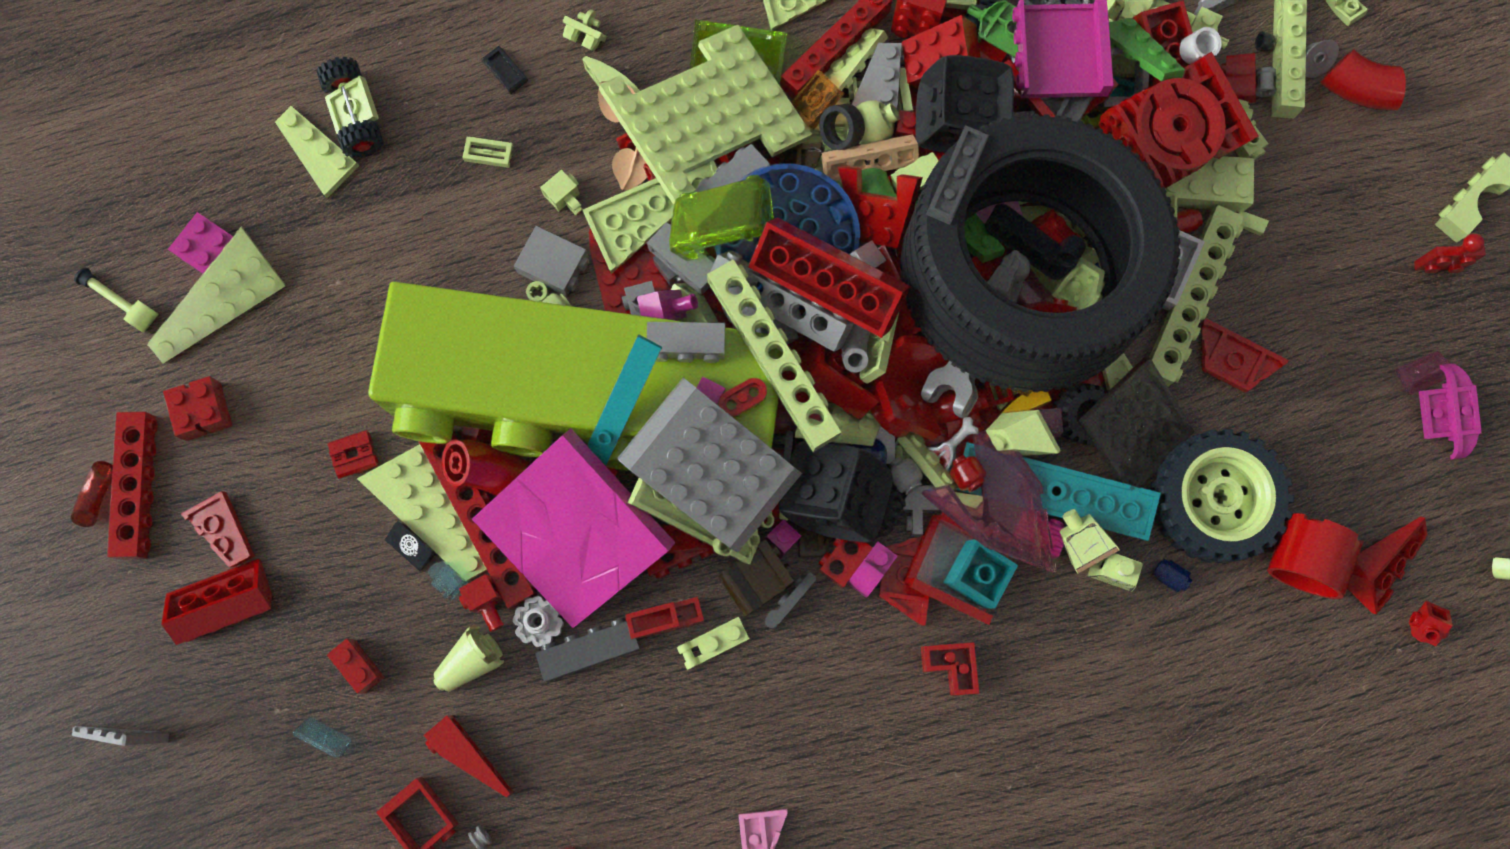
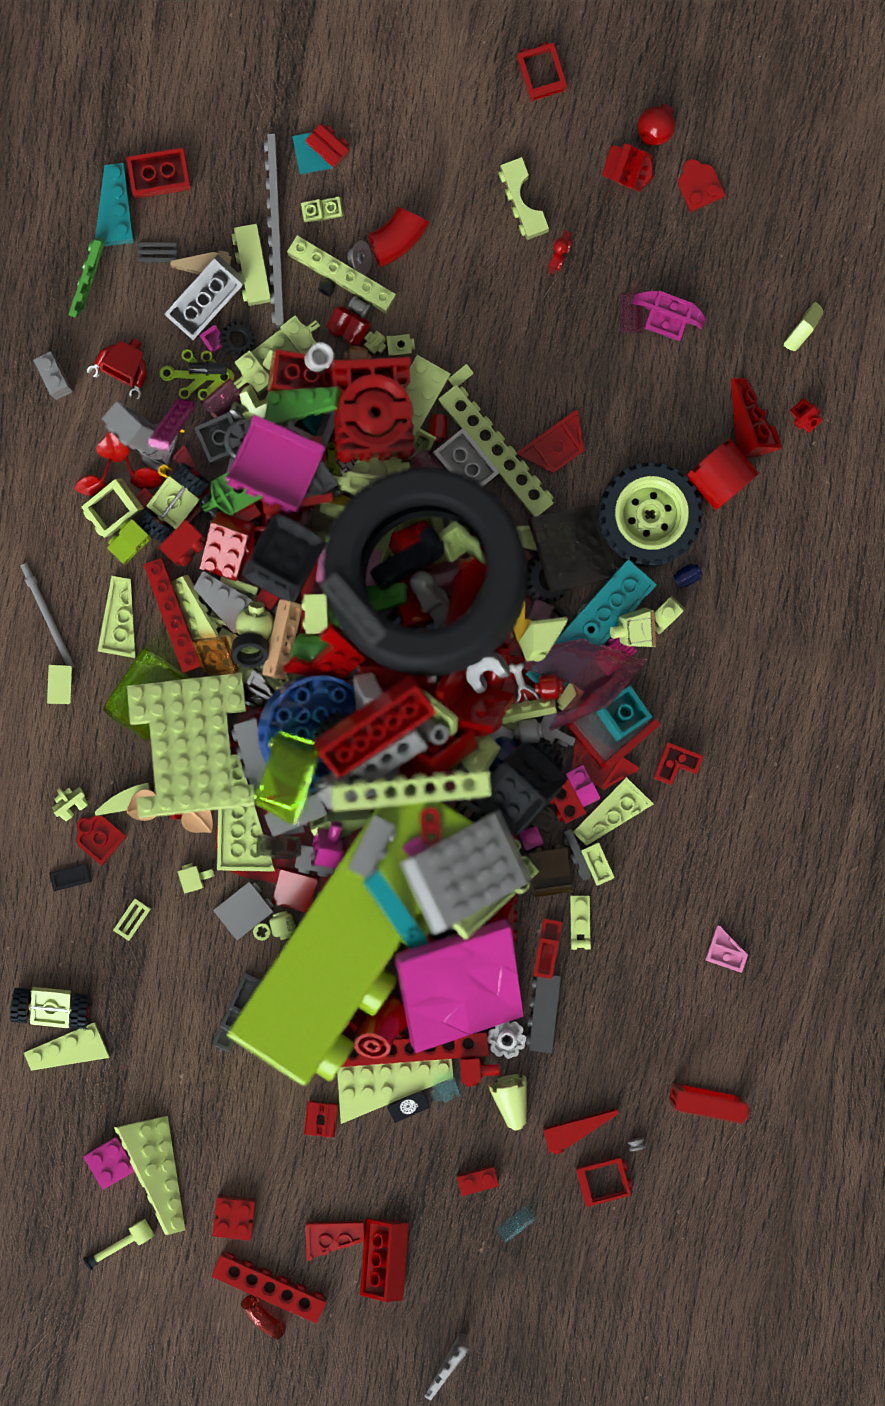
camera: 65 degrees left, 10 degrees up
(560, 78) = (98, 837): none -> red plate
(601, 295) = (294, 890): none -> tile
(638, 262) = (279, 847): none -> clear smoke brick
(791, 629) = (597, 864): none -> yellowish green panel
(864, 621) = (613, 811): none -> yellowish green wing

